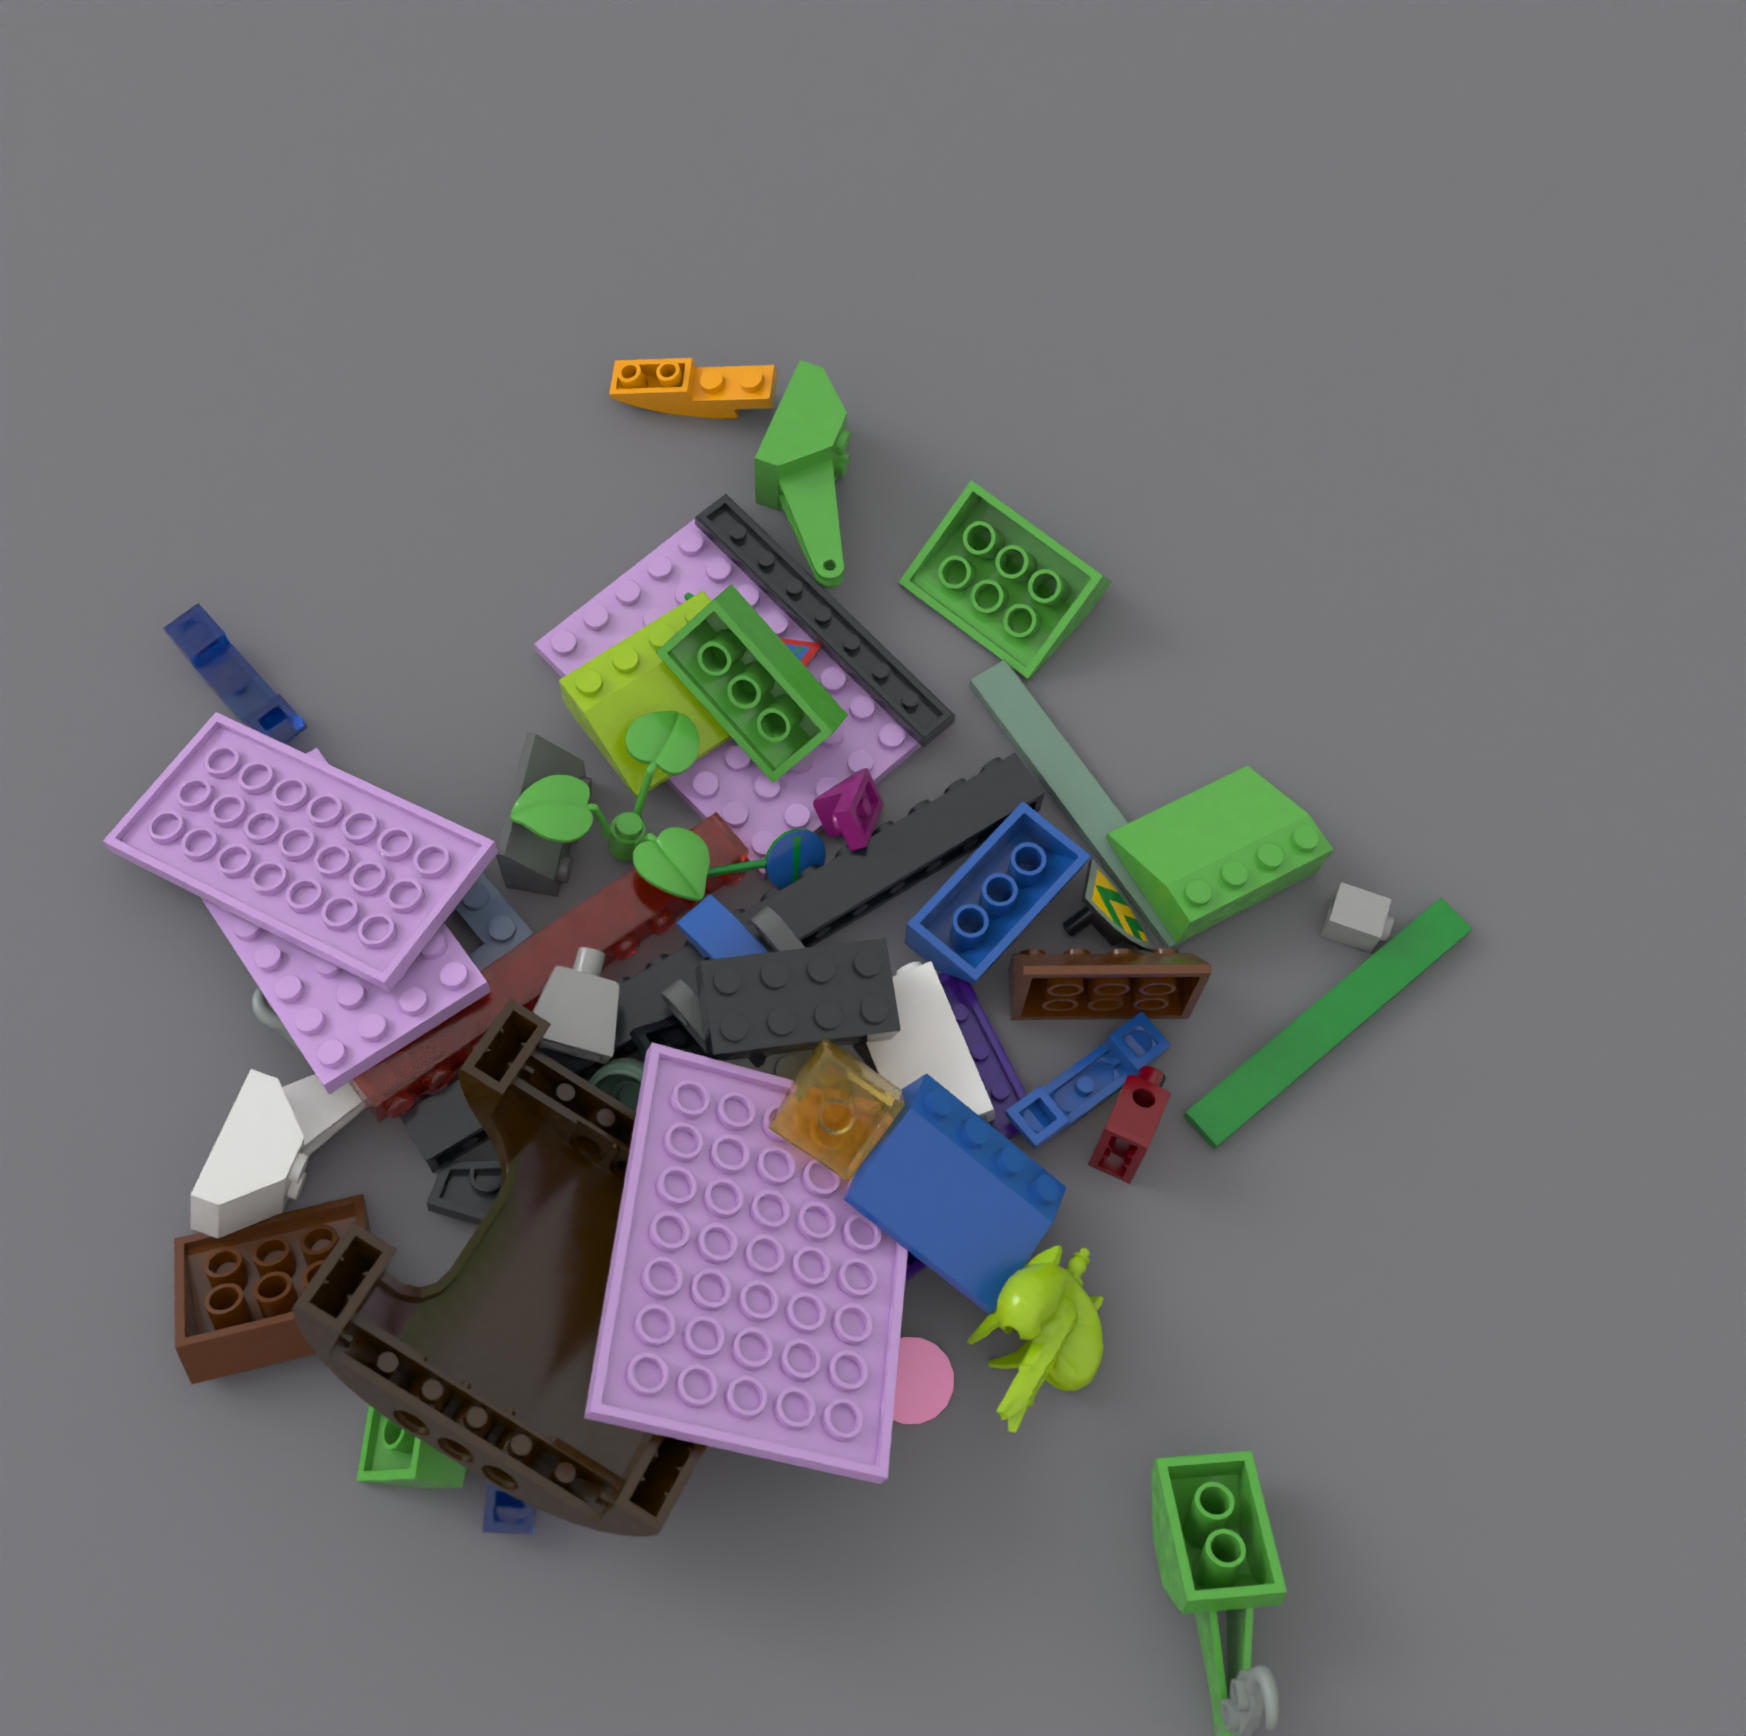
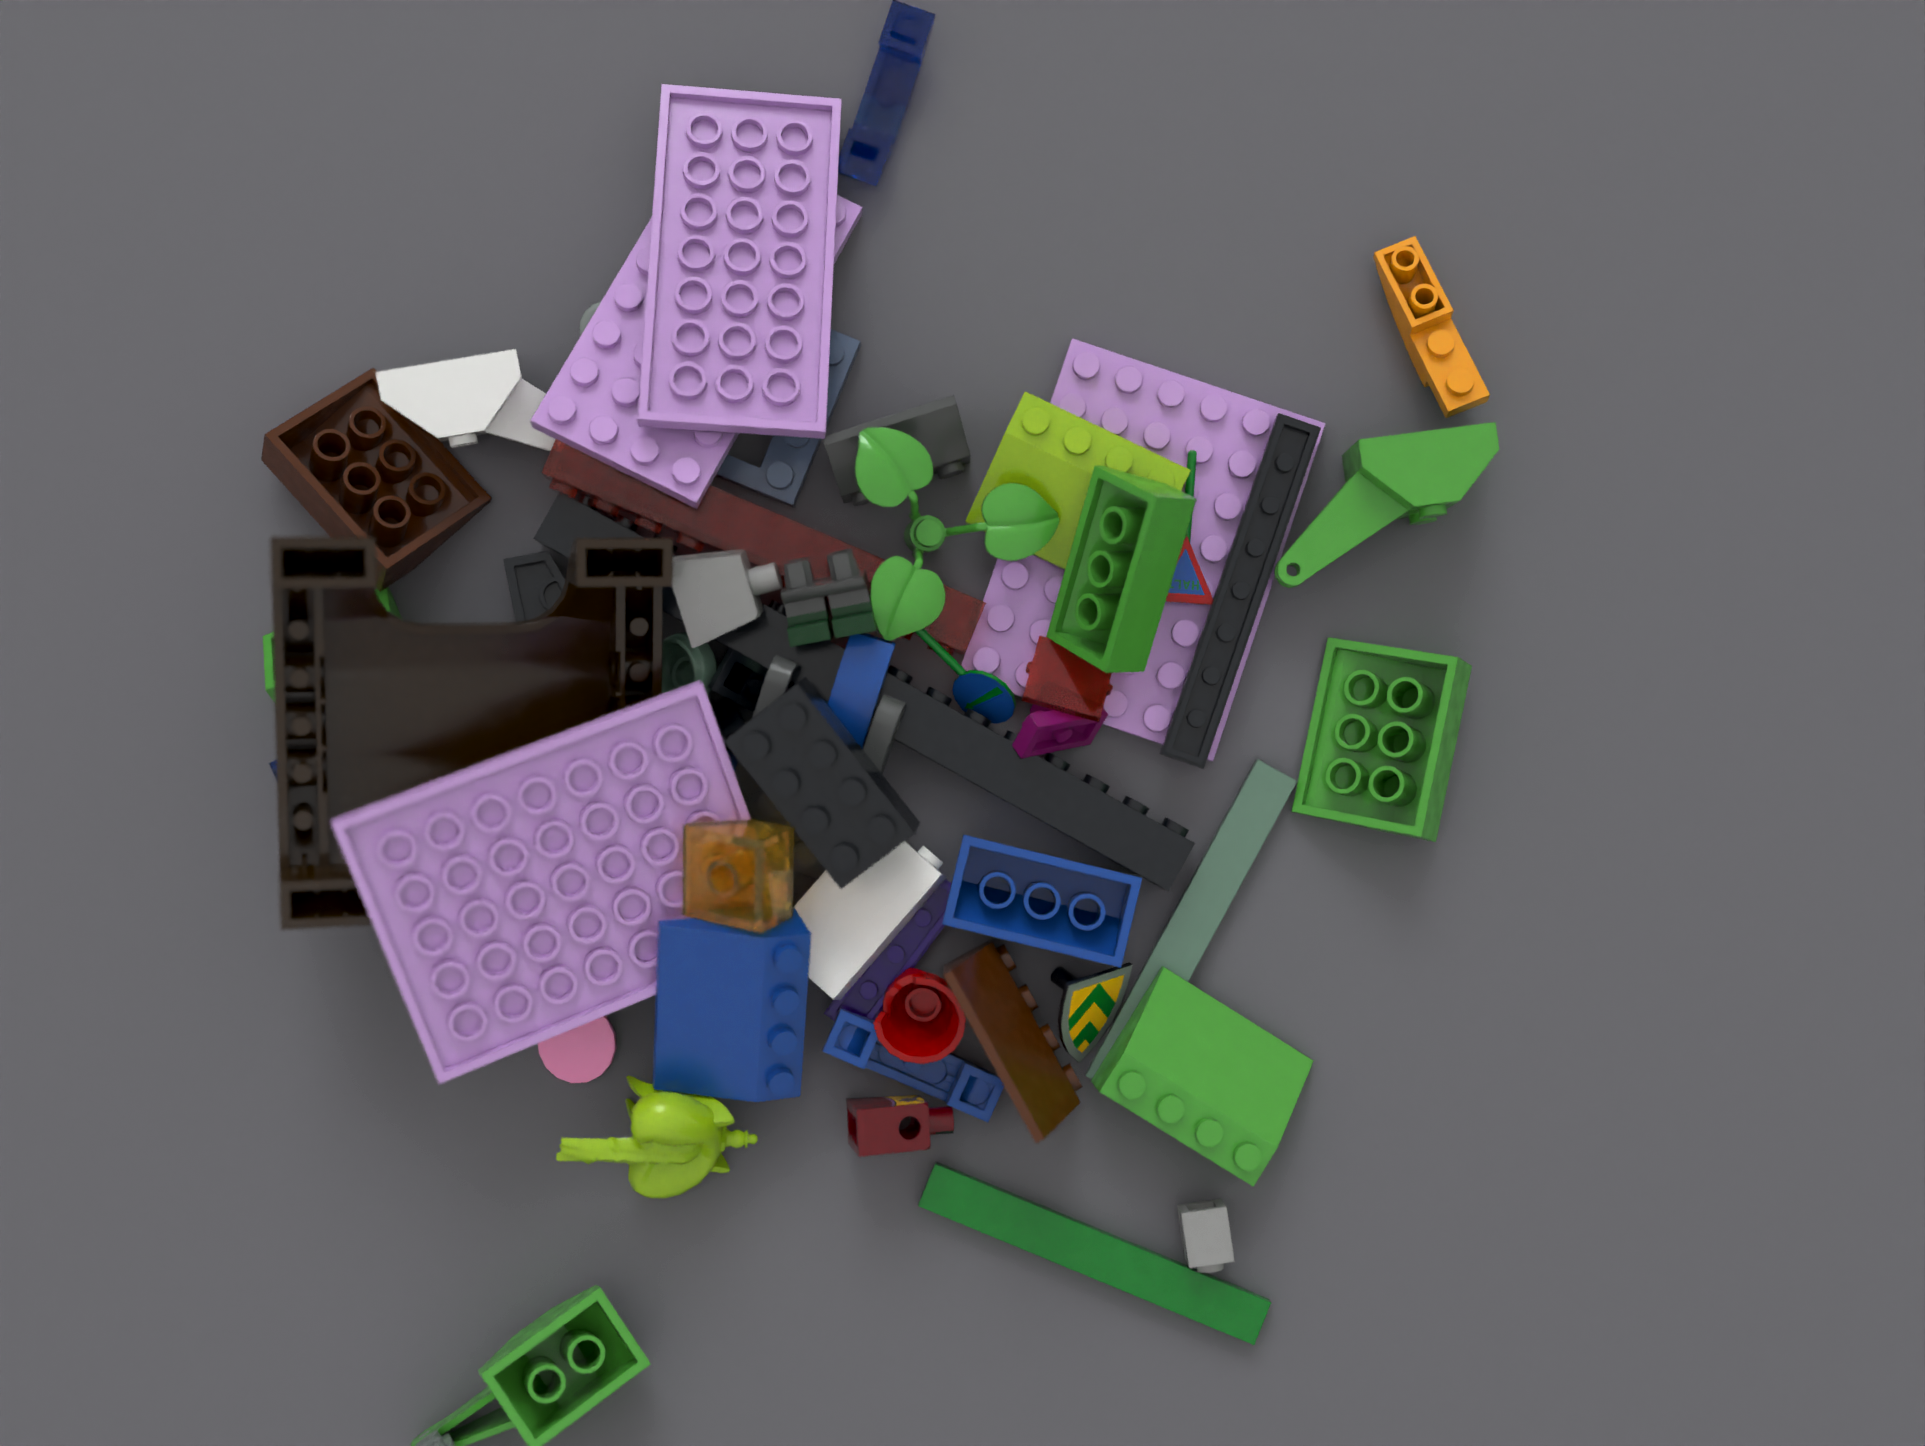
camera: 65 degrees right, 20 degrees up
(644, 926) = (808, 604): none -> dark grey hips
(820, 779) = (1065, 682): none -> clear red piece
(1048, 1043) = (920, 1018): none -> red helmet

